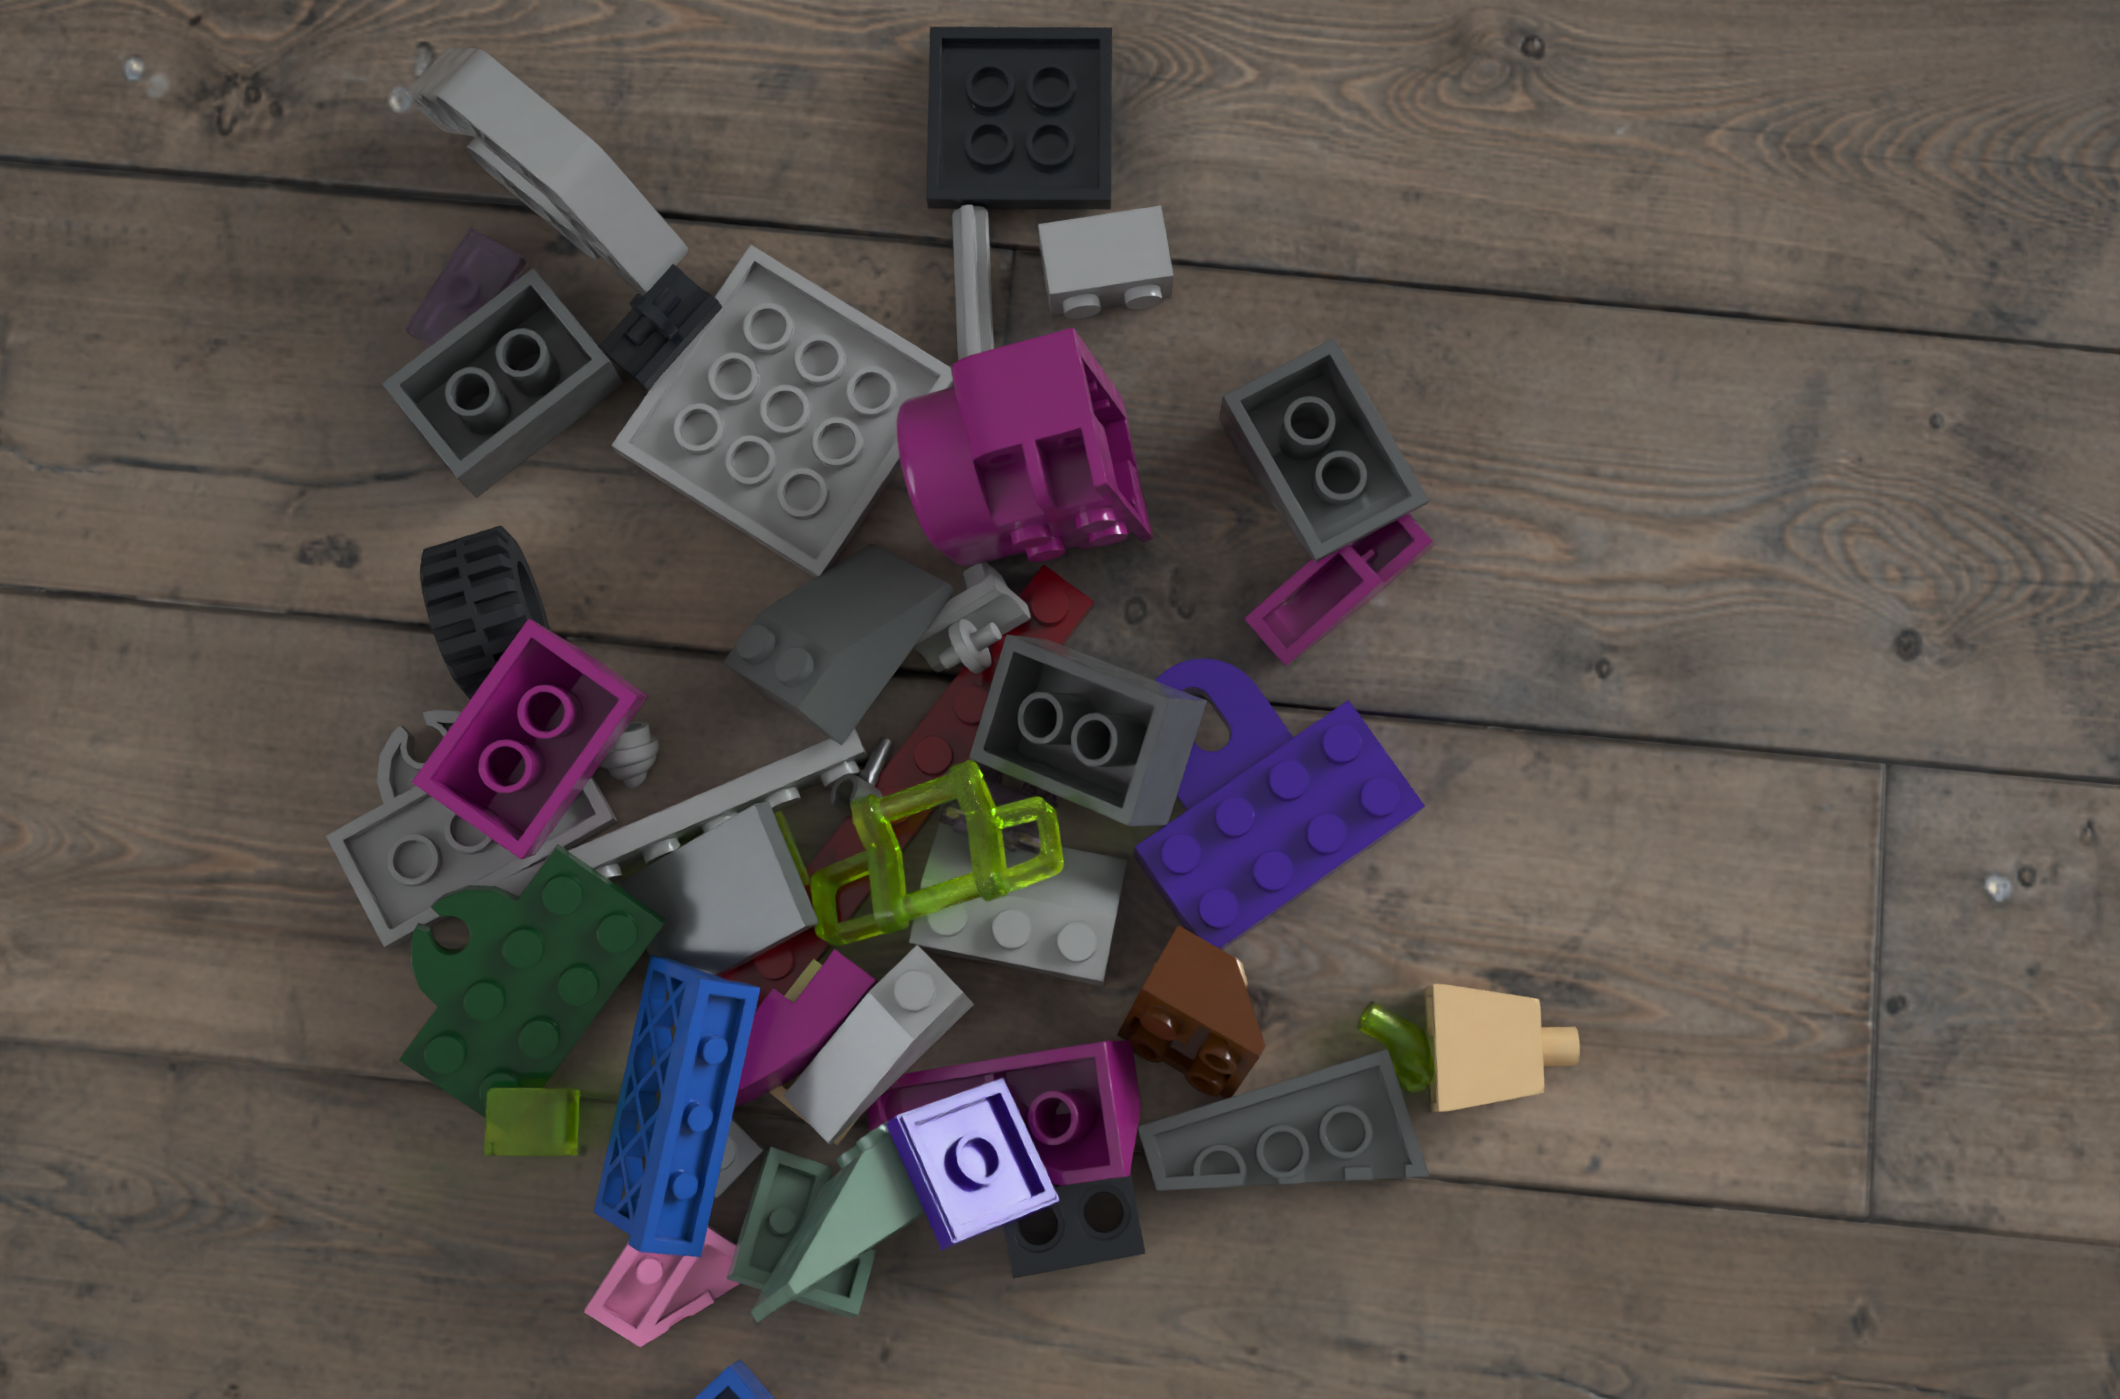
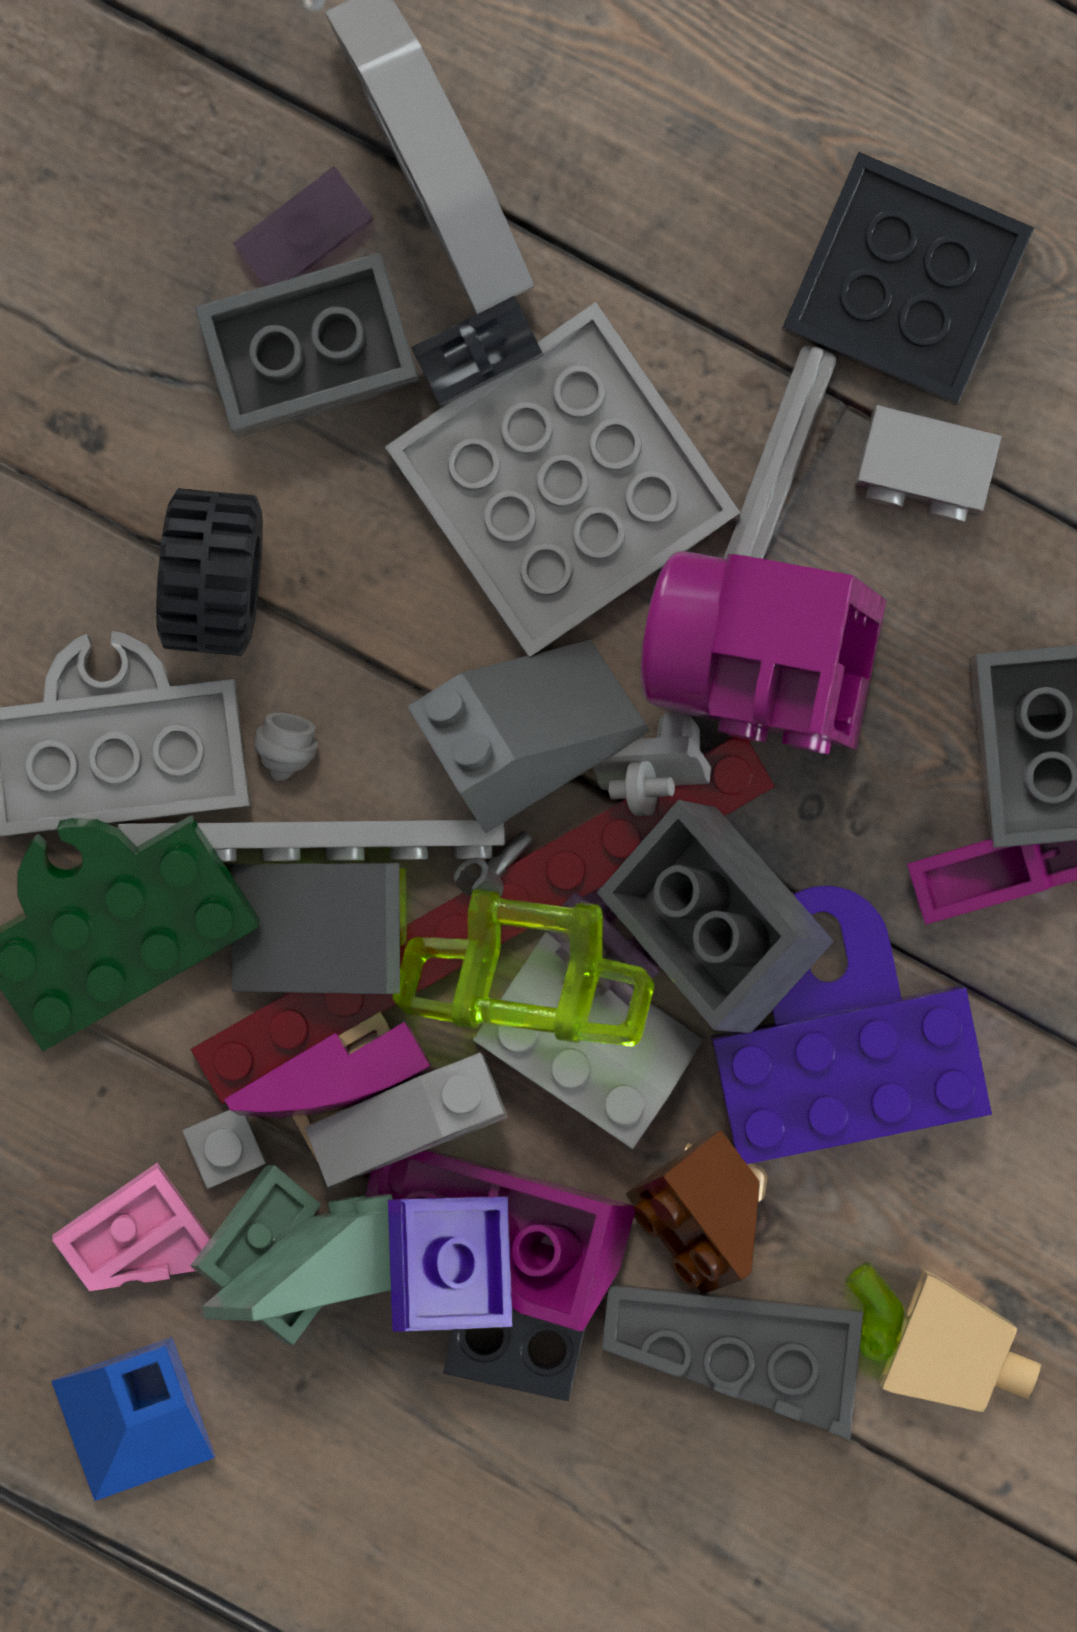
camera: 25 degrees right, 10 degrees up
(530, 739) = (207, 716): magenta slope -> none
(532, 1122) = (69, 1053): clear neon green panel -> none
(687, 1134) = (233, 1098): blue fence -> none

